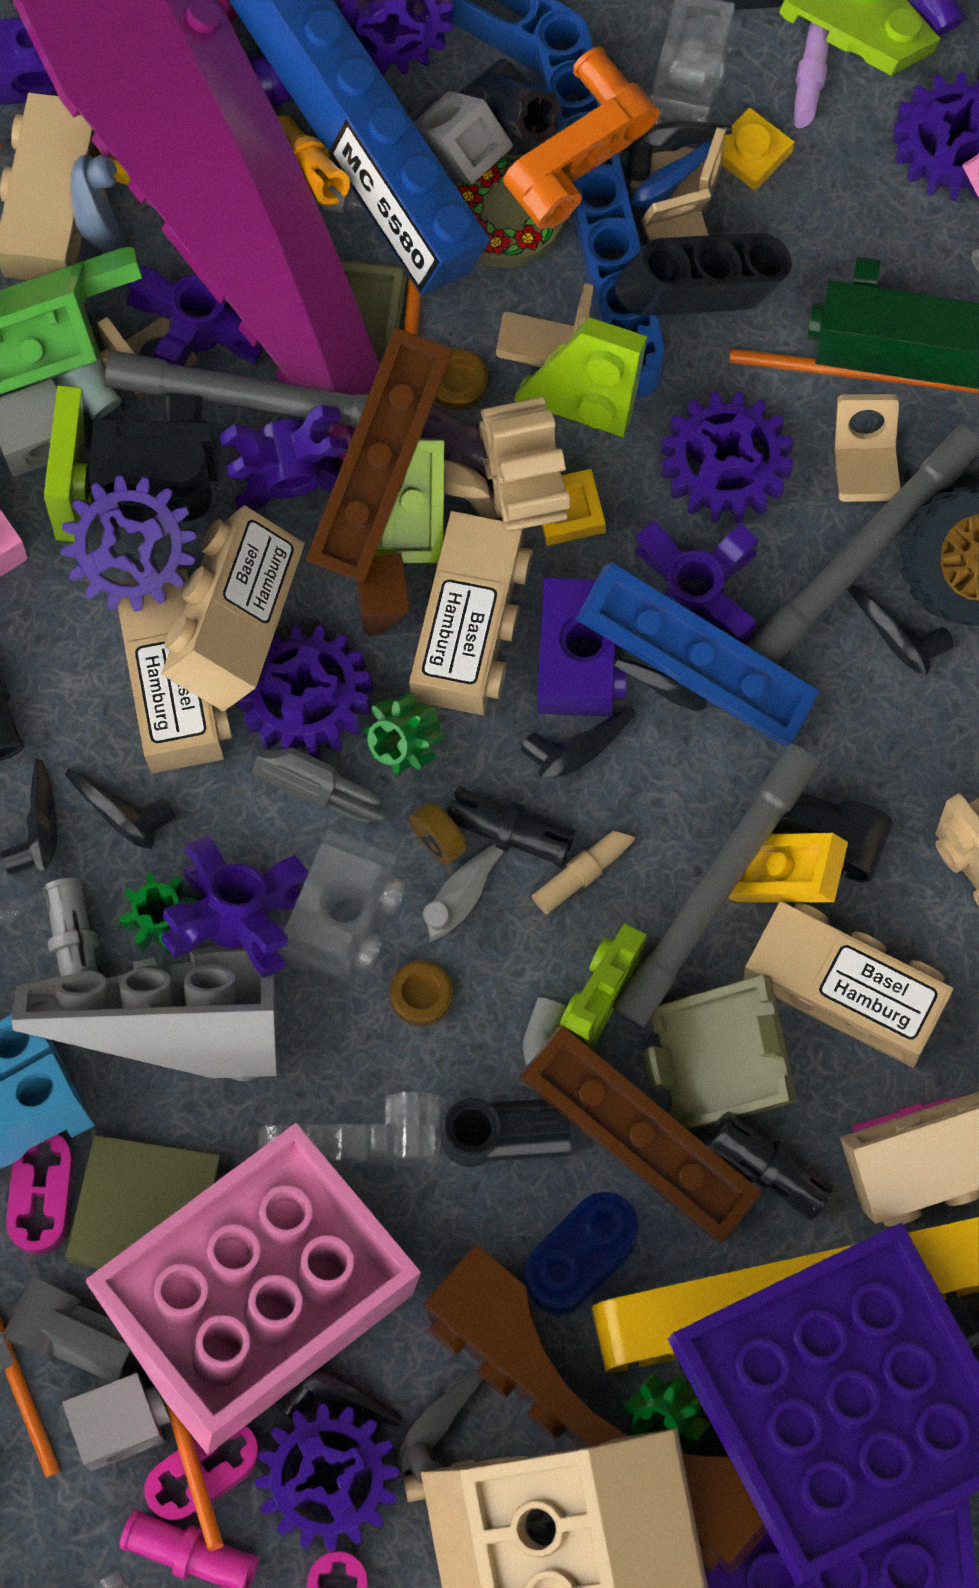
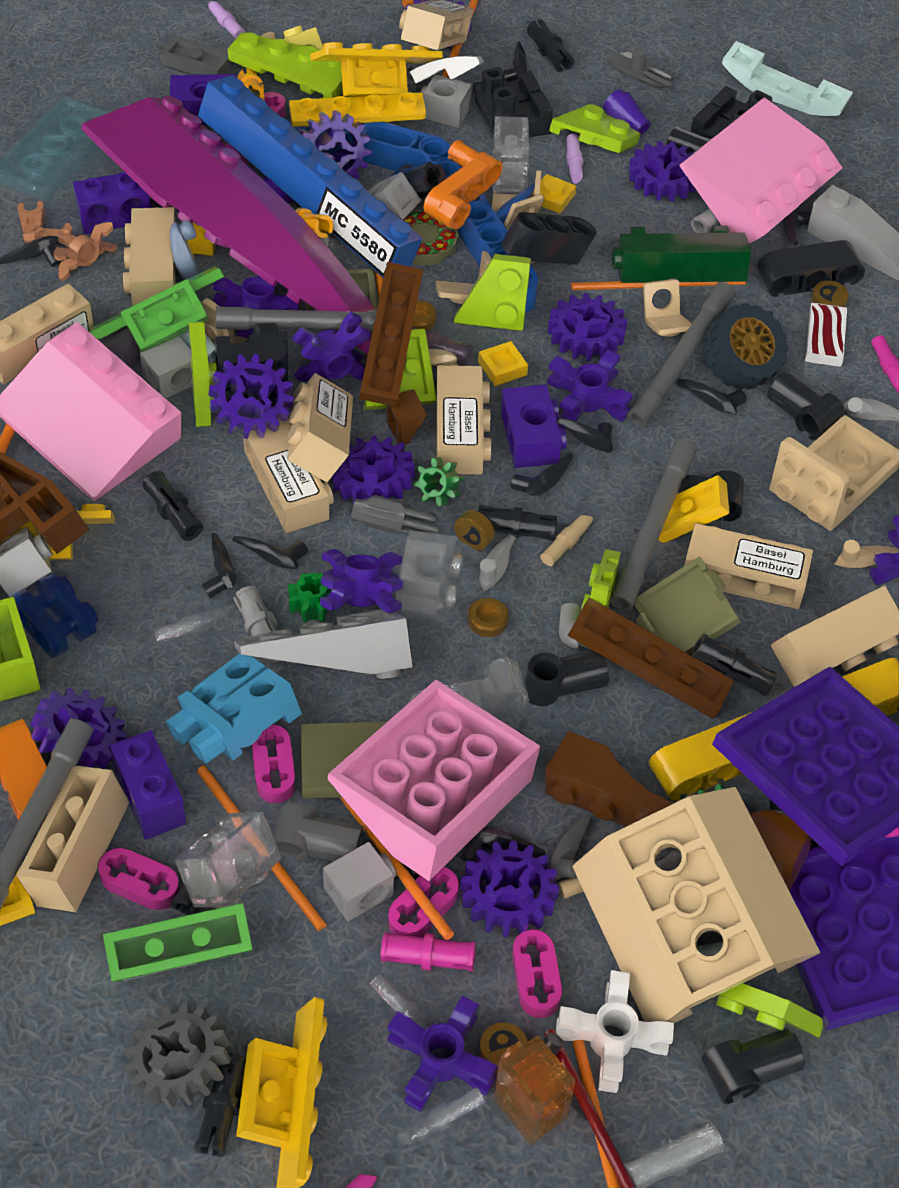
camera: 20 degrees left, 20 degrees down
(524, 464) = (477, 329): tan gear -> none
(581, 1253) = (637, 727): clear blue brick -> none
(666, 137) = (506, 187): black bar -> none
(697, 654) = (604, 411): blue plate -> none

